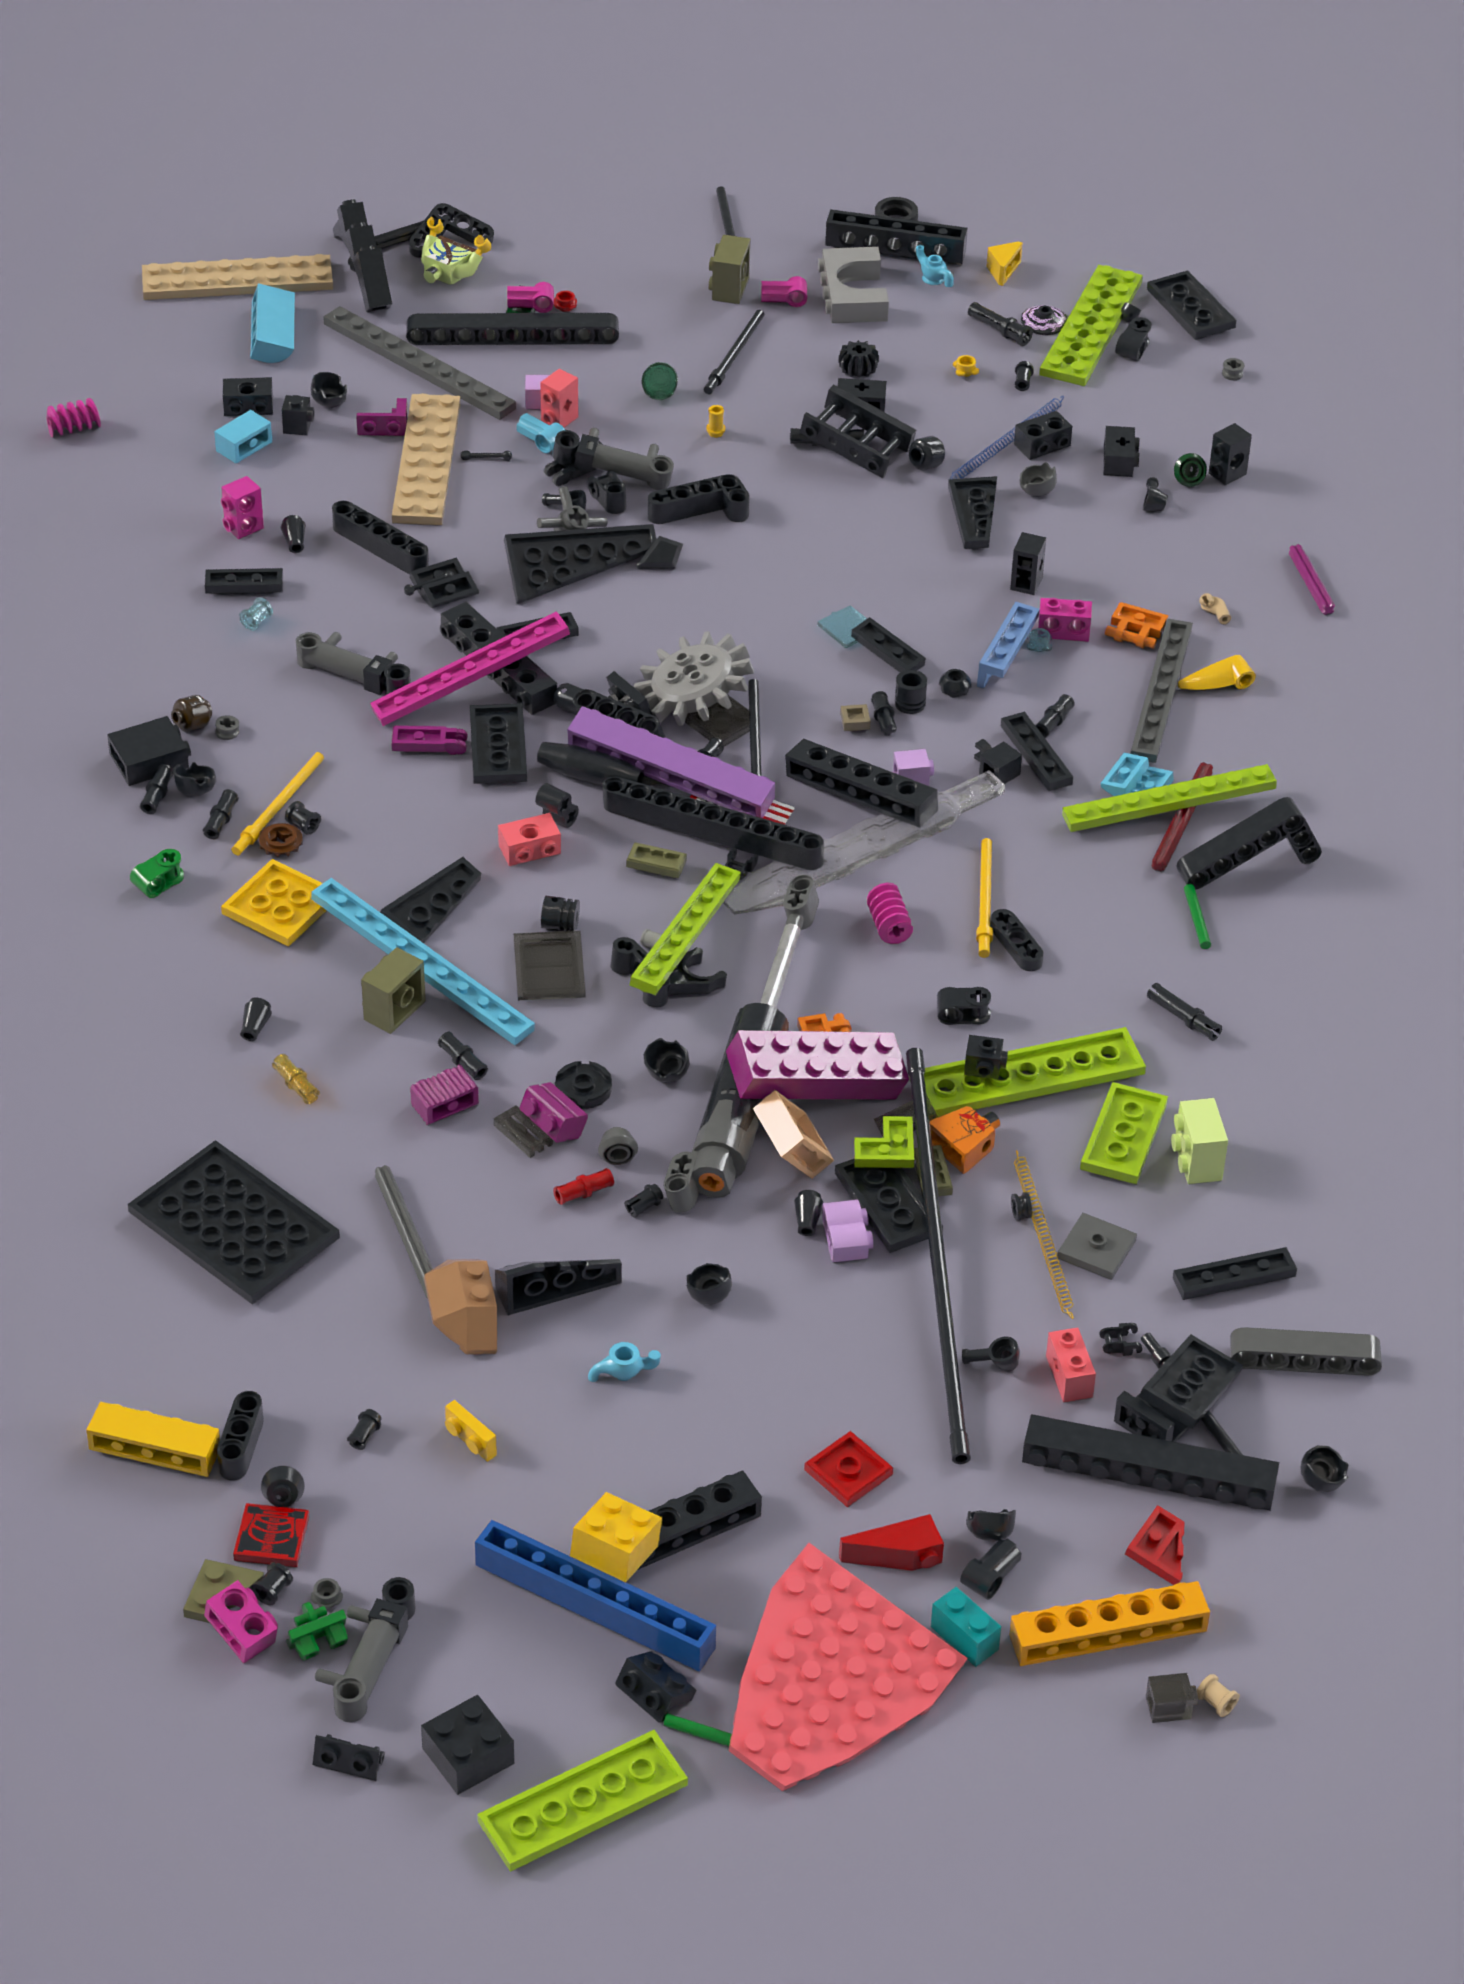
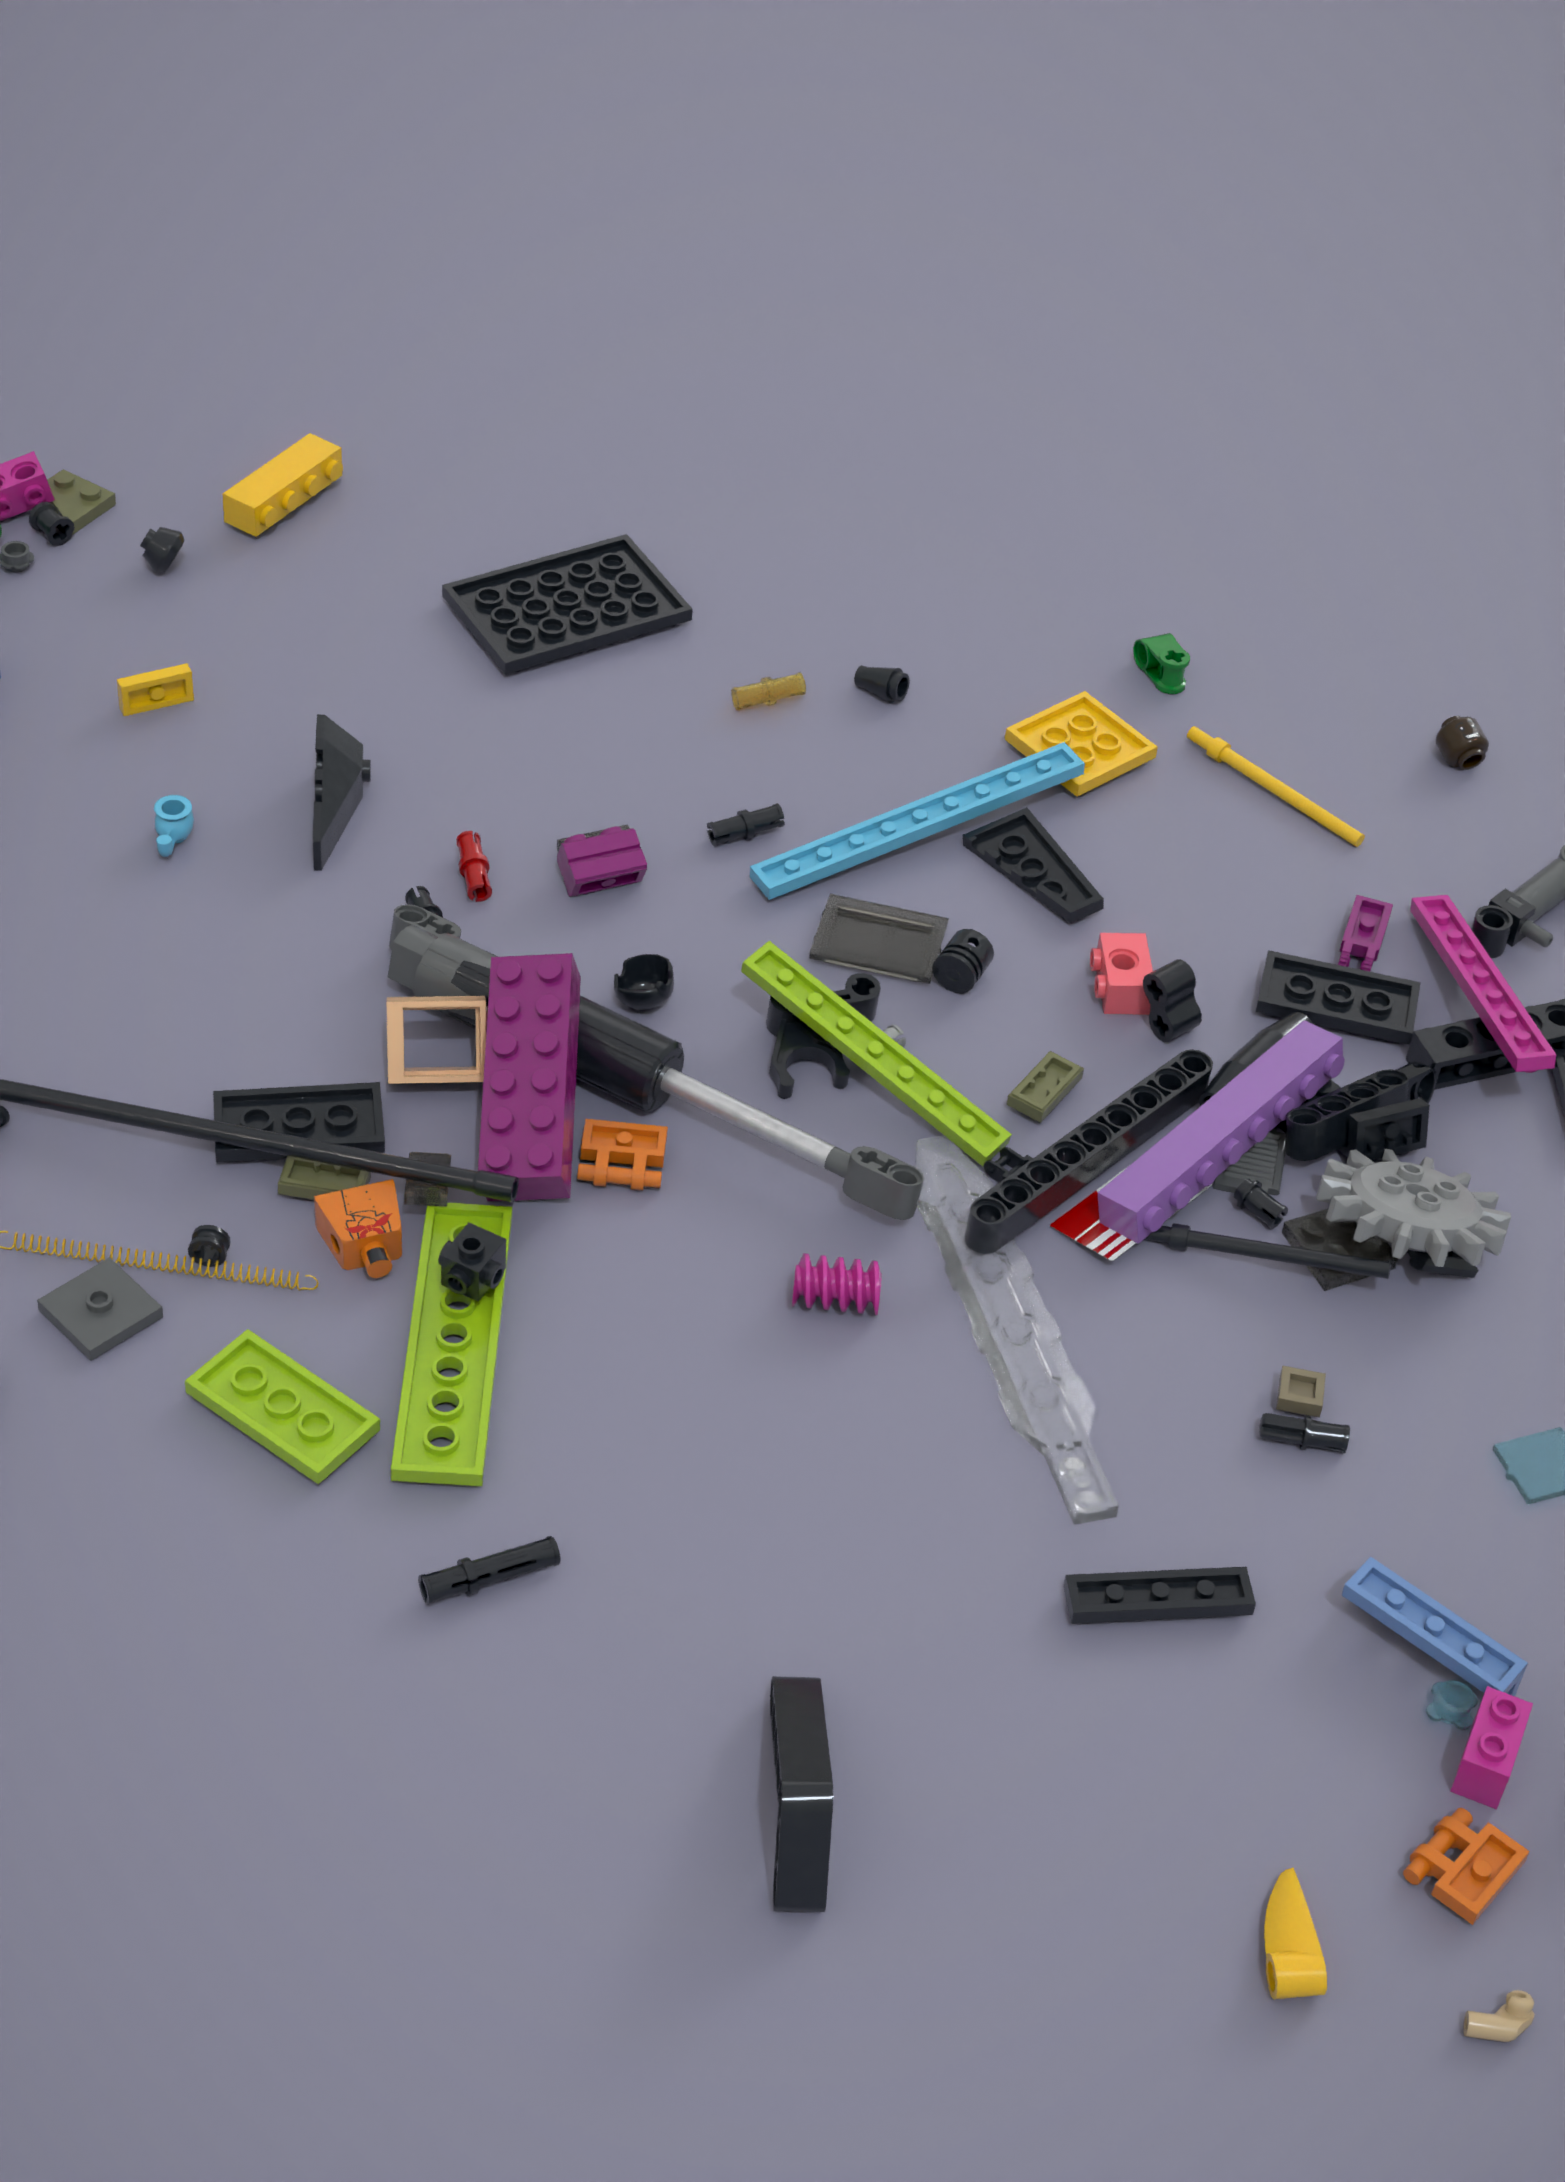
camera: 105 degrees right, 0 degrees up
(145, 746) = (1397, 696): black brick -> none
(156, 789) = (1325, 692): black pin -> none
(195, 779) = (1331, 716): black hair -> none
(220, 814) = (1262, 731): black pin -> none
(227, 733) = (1437, 768): dark grey bush -> none
(240, 1435) = (256, 542): black beam -> none
(271, 1535) = (113, 543): tile -> none
(287, 833) = (1213, 767): reddish brown gear -> none
(302, 817) = (1233, 792): black bush -> none
(368, 1423) = (218, 629): black pin -> none
(393, 990) = (864, 771): olive brick -> none
(403, 1223) = (483, 721): dark grey axle -> none
(444, 1094) = (683, 790): magenta brick -> none
(464, 1304) = (366, 716): medium nougat wedge -> none
(585, 1083) = (653, 917): black tile -> none
(617, 1146) = (522, 905): dark grey cone -> none
(709, 1283) = (247, 918): black hair -> none
(808, 1210) = (321, 1041): black cone -> none
(846, 1230) = (264, 1060): lavender brick -> none
(861, 783) = (1125, 1333): black brick -> none
(887, 646) = (1464, 1482): black plate -> none
(892, 1150) = (365, 1125): lime plate -> none
(910, 691) = (1338, 1472): black piece -> none
(913, 765) = (1155, 1416): lavender brick -> none
(955, 683) = (1360, 1543): black plate -> none
(961, 1005) = (616, 1311): black piece -> none
(984, 932) = (763, 1391): yellow bar -> none
(1000, 760) = (1139, 1531): black brick -> none
(1015, 928) = (722, 1439): black beam -> none
(1061, 707) = (1268, 1675): black pin -> none
(1134, 774) = (1048, 1712): medium azure slope -> none
(1161, 689) = (1280, 1836): dark grey plate -> none
(1169, 798) = (975, 1731): lime plate -> none
(1177, 826) = (945, 1747): dark red axle -> none
(1197, 916) = (699, 1676): green bar -> none
(1200, 1141) = (194, 1459): yellowish green brick -> none

